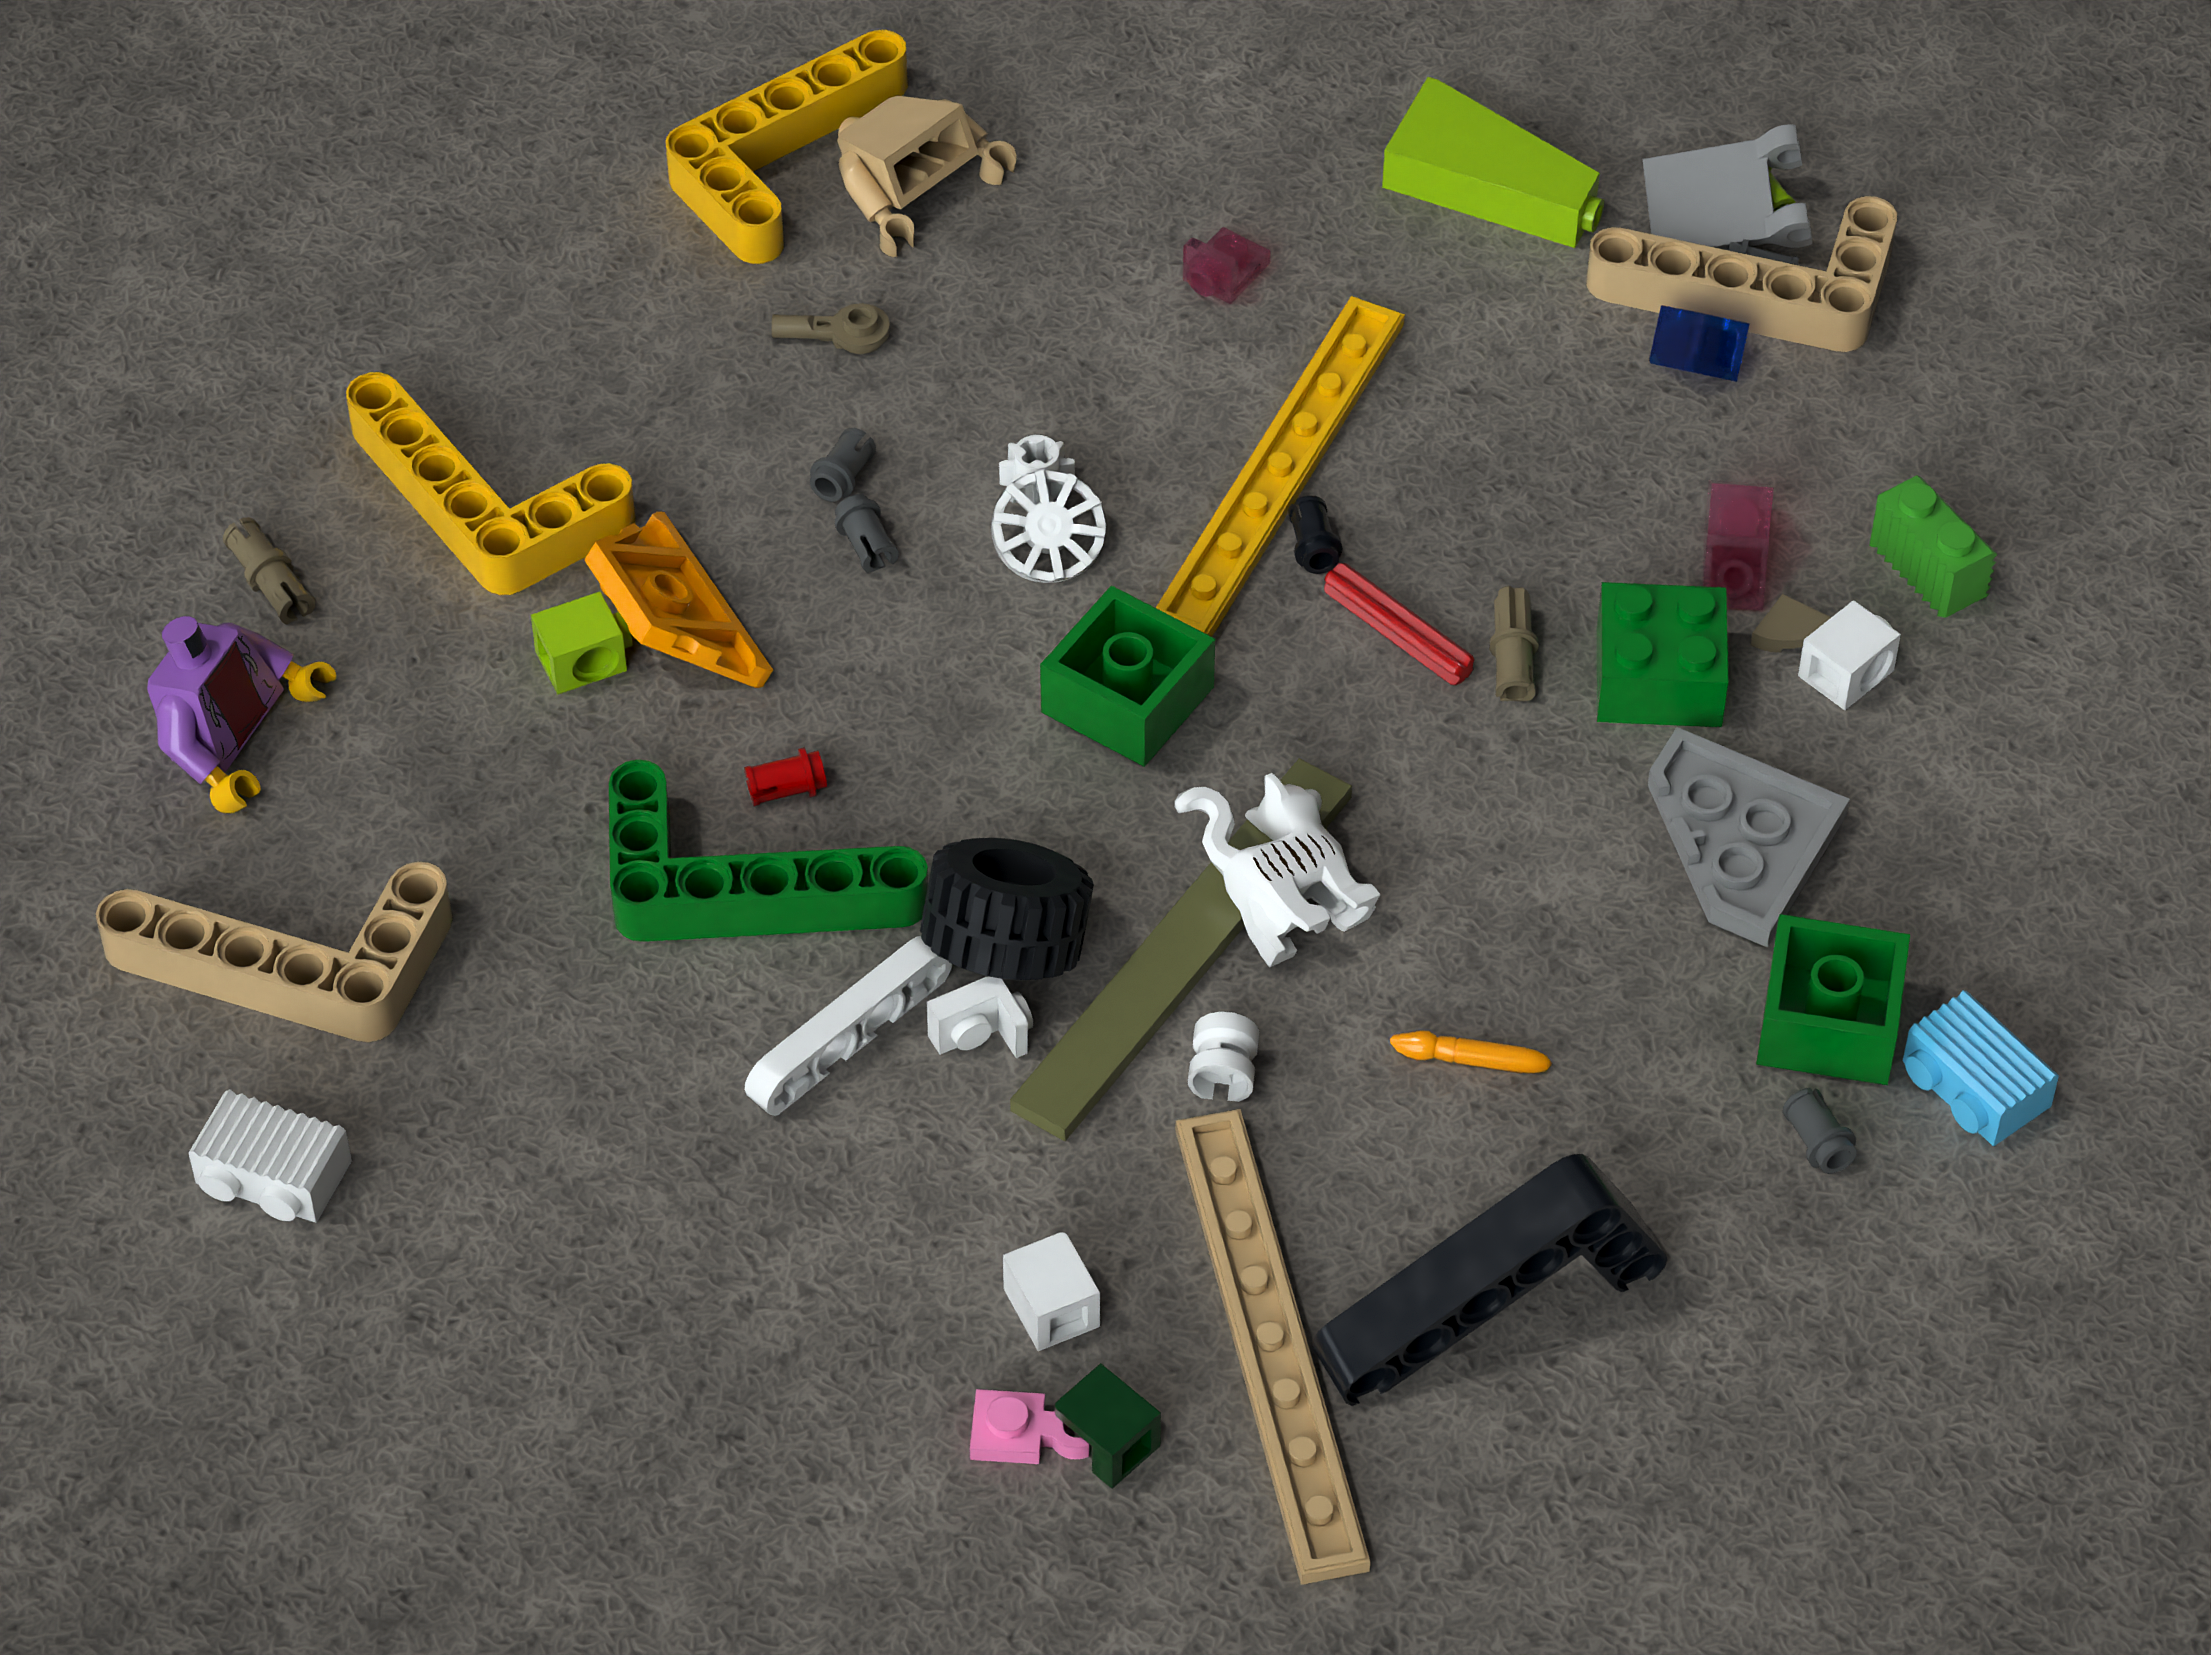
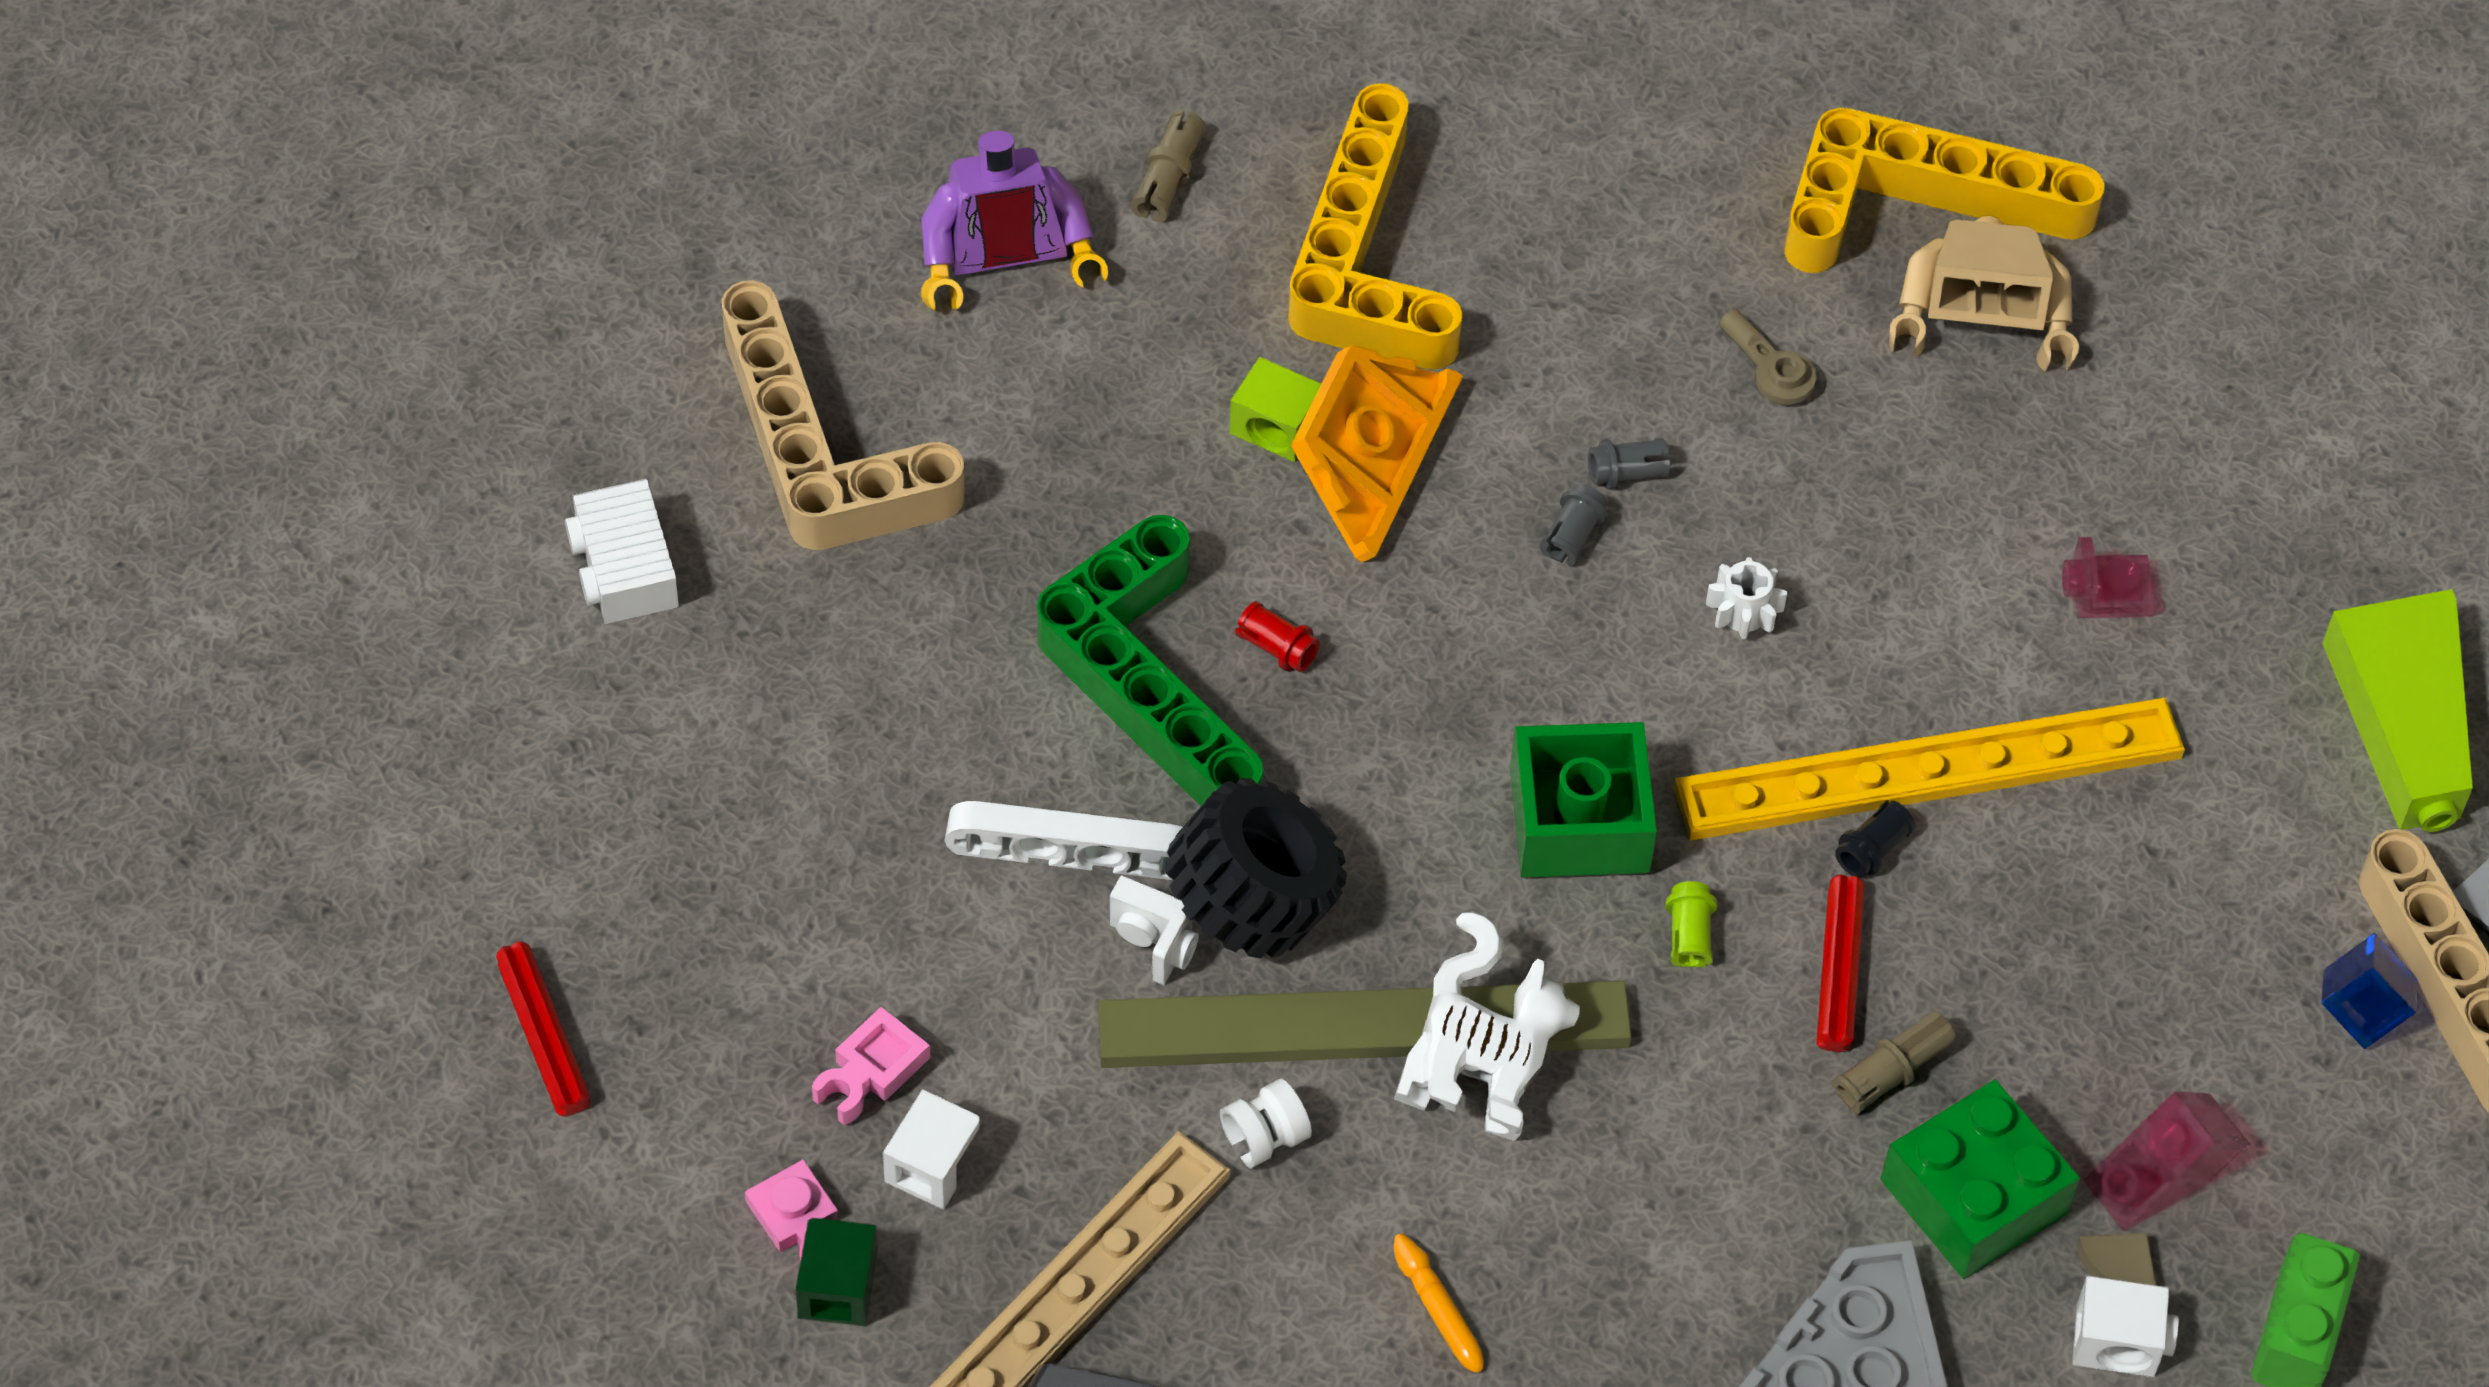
camera: 50 degrees right, 5 degrees up
(678, 1502) = (543, 1029): none -> red axle
(930, 1284) = (873, 1059): none -> bright pink plate
(1048, 526) = (1695, 643): white wheel -> none
(1286, 687) = (1691, 923): none -> lime pin

